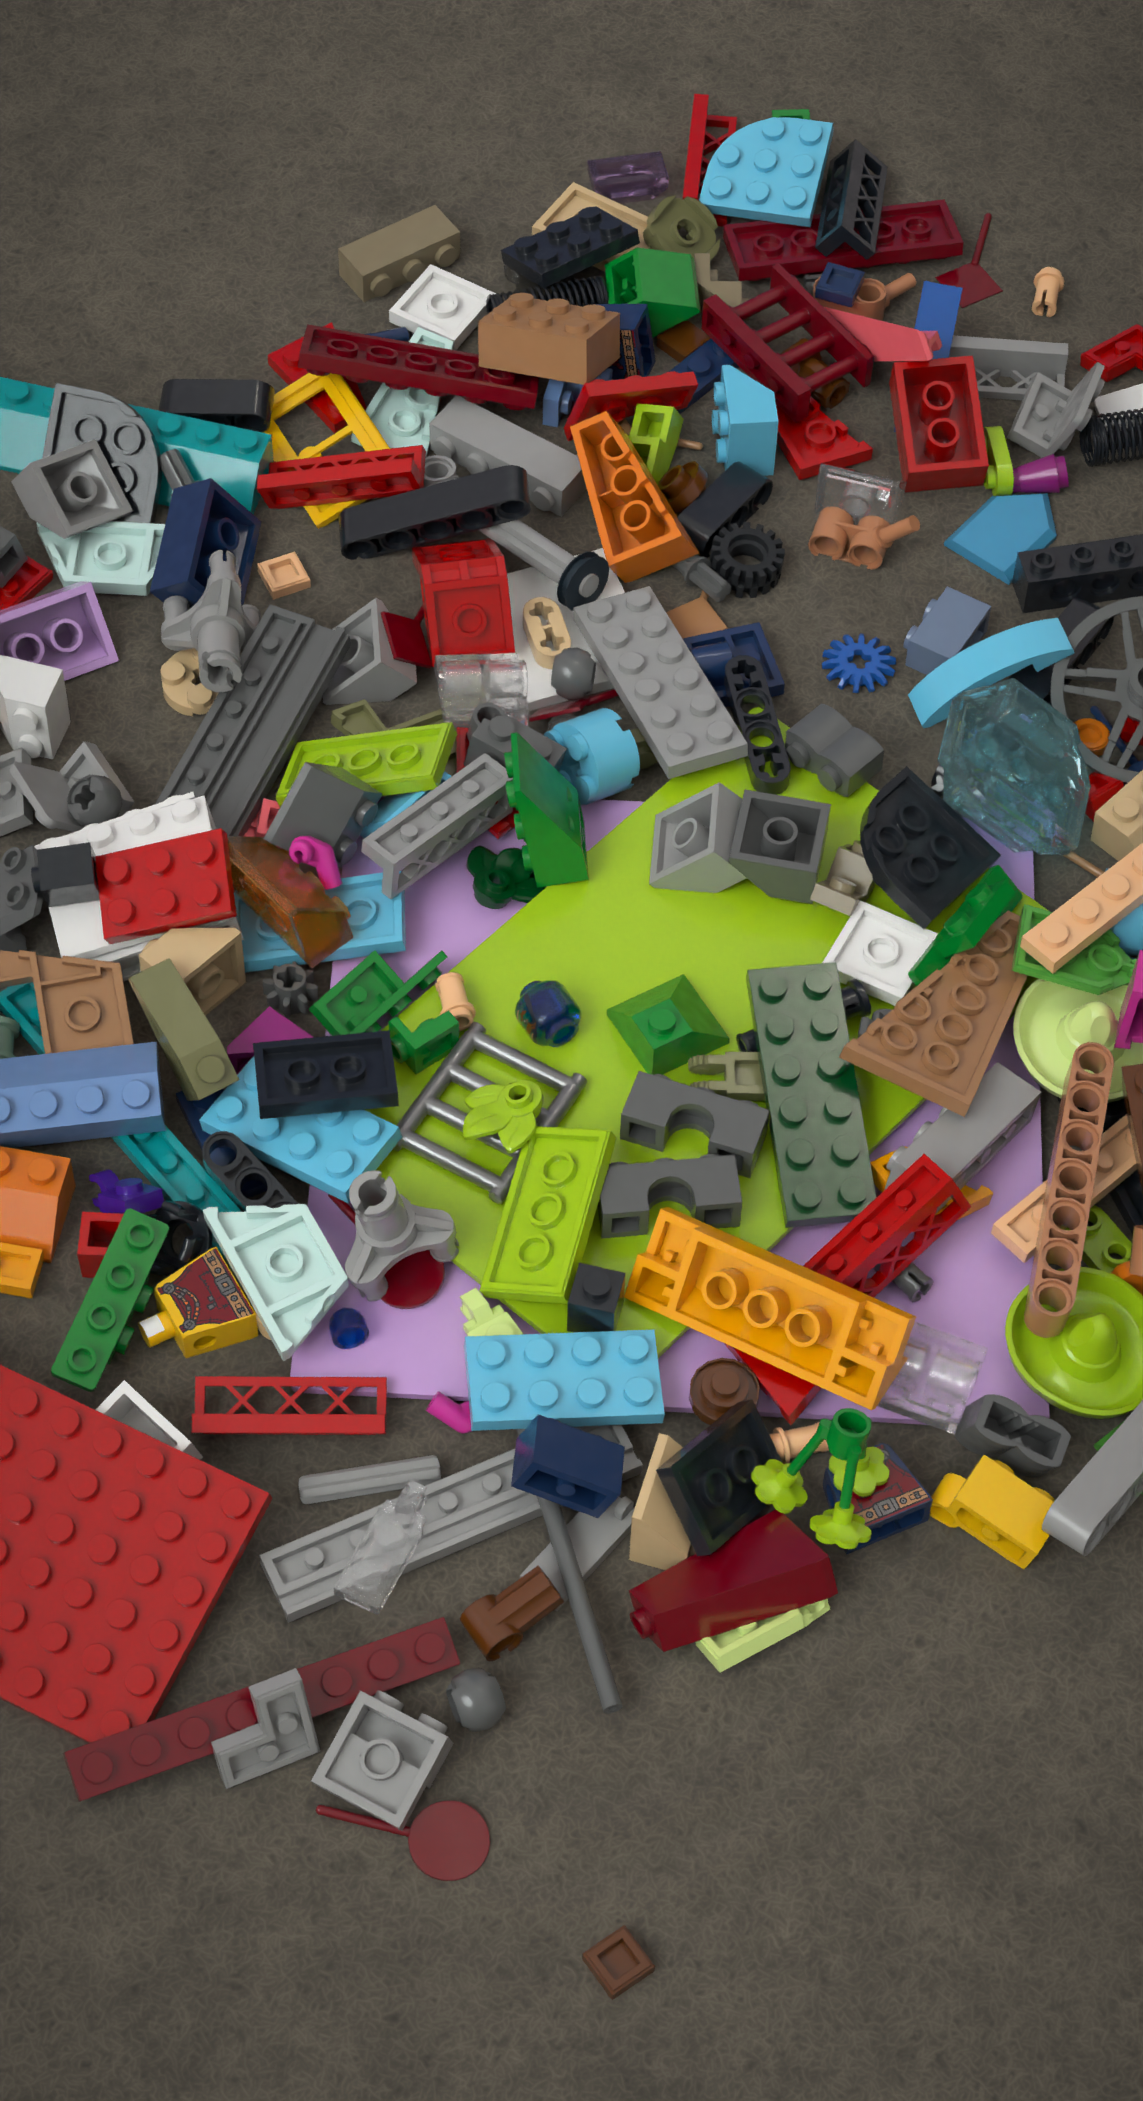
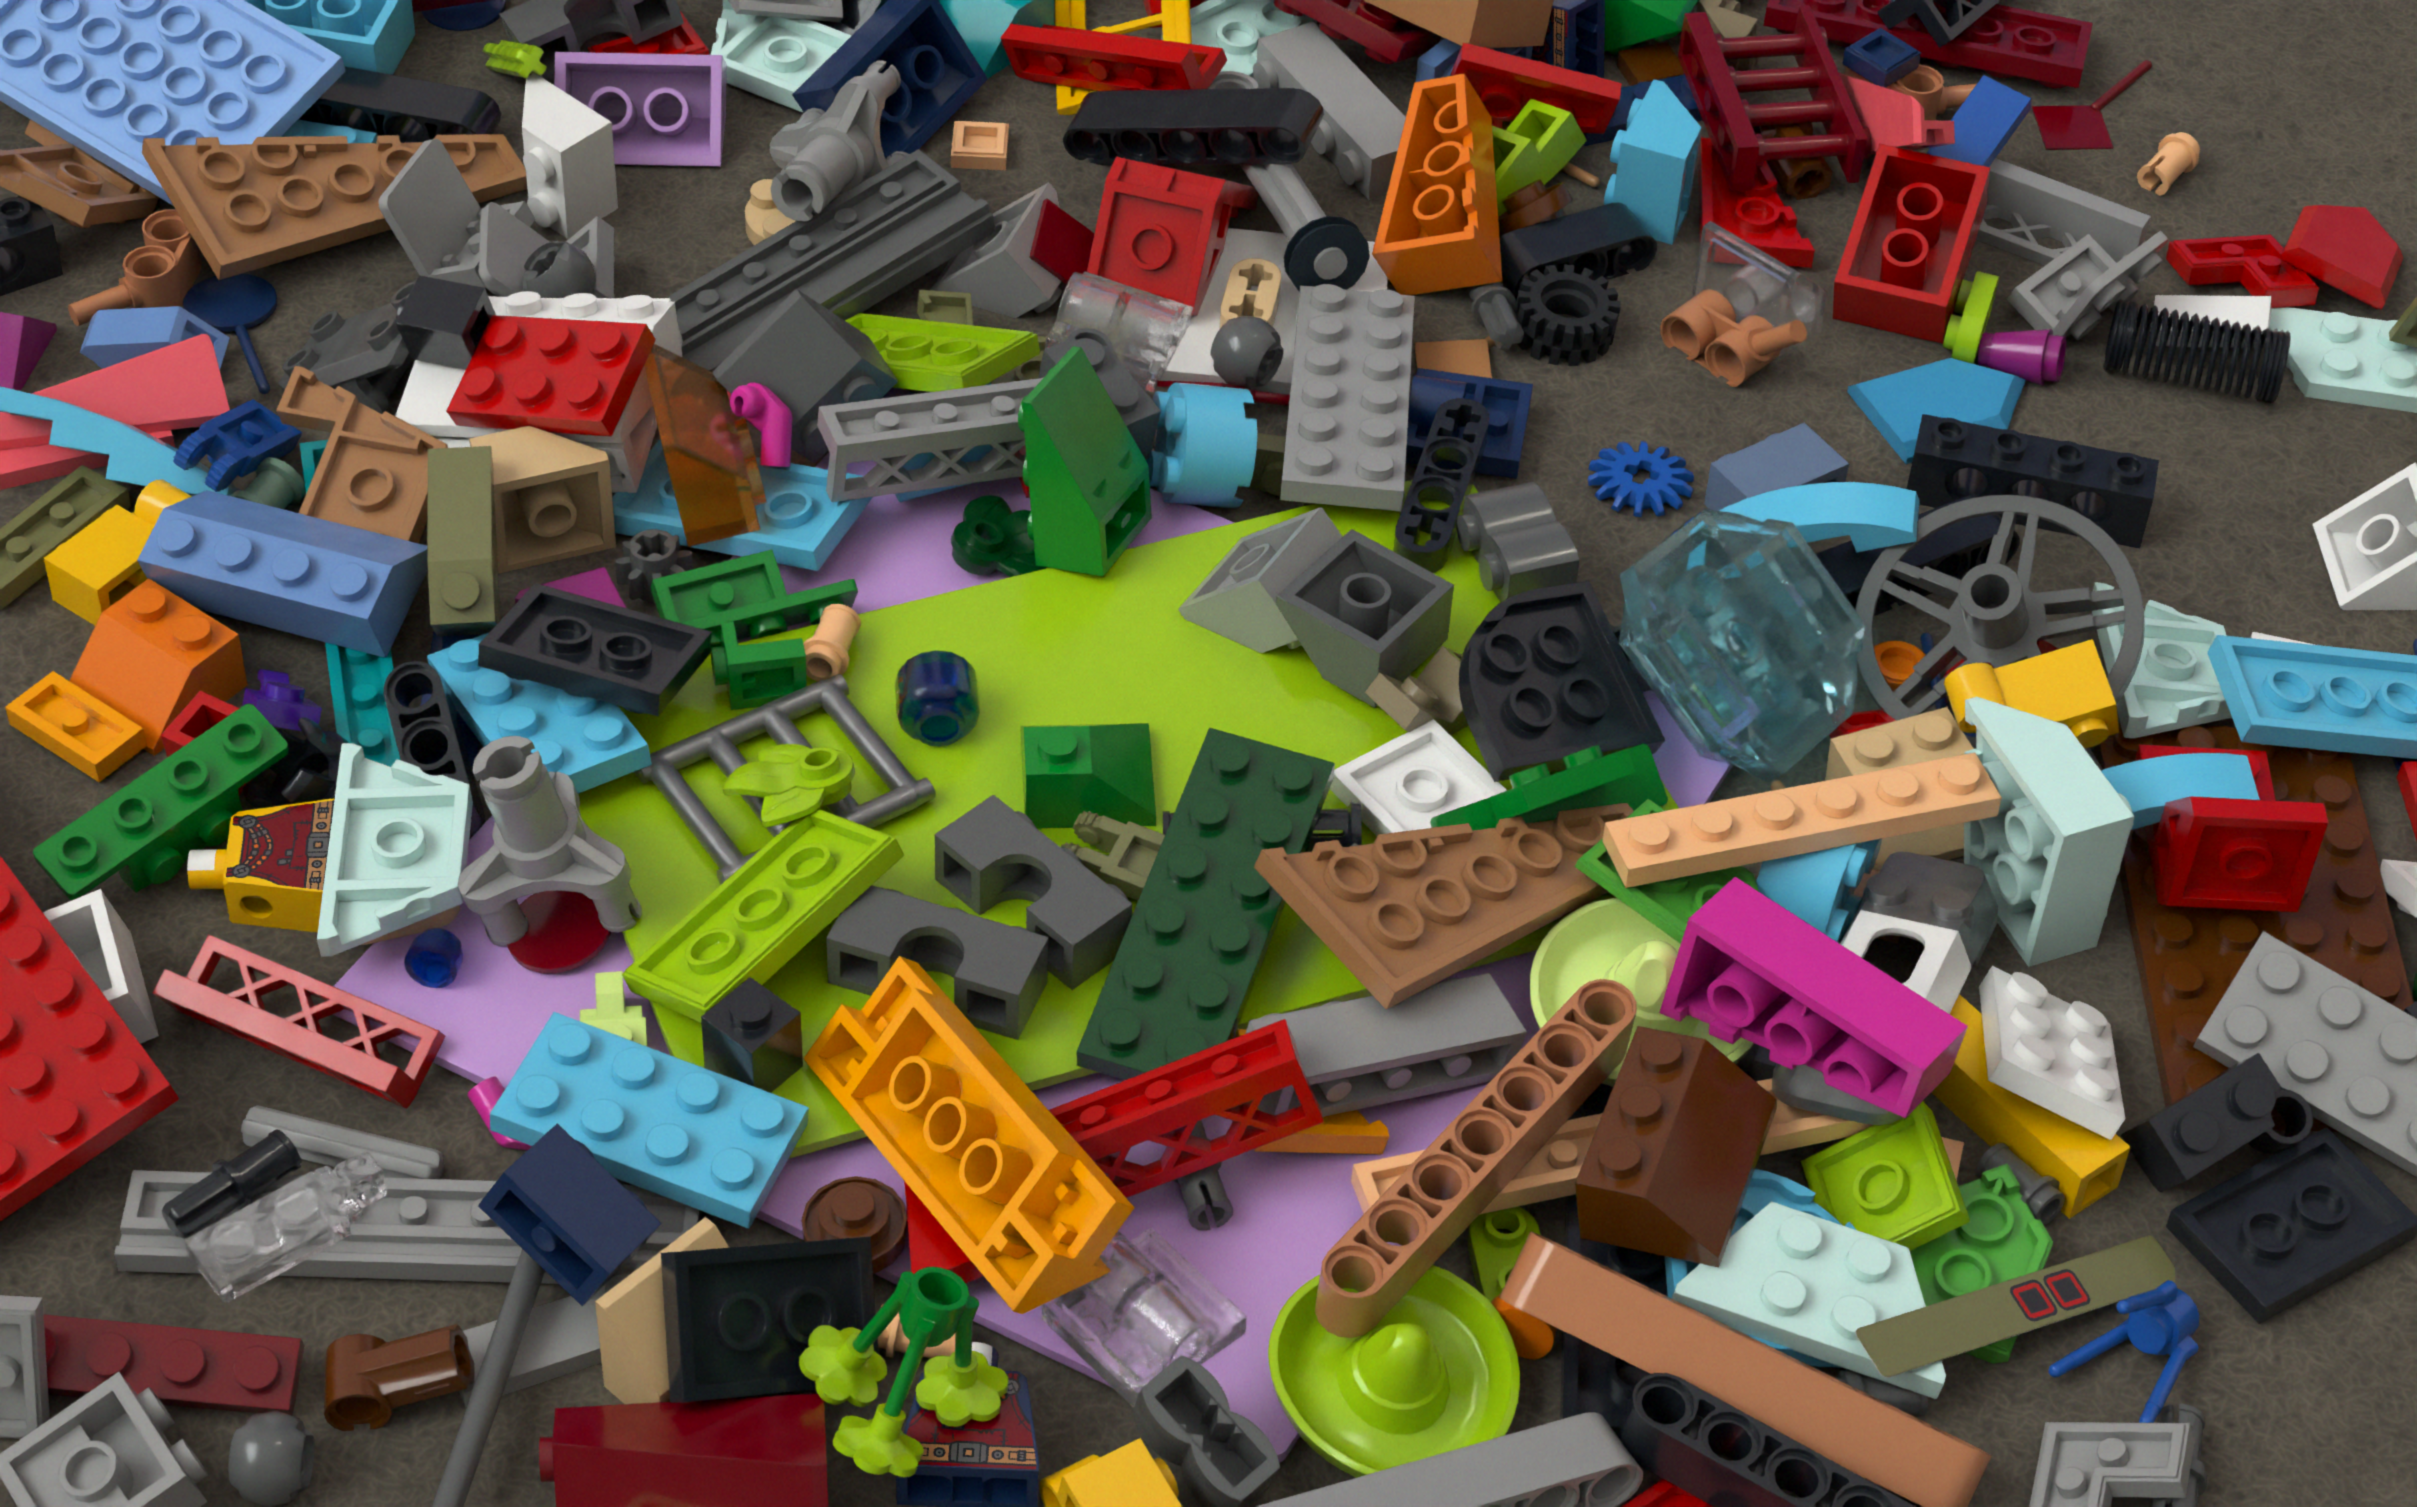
camera: 25 degrees right, 10 degrees down
(335, 1538) = (231, 1185): none -> black axle

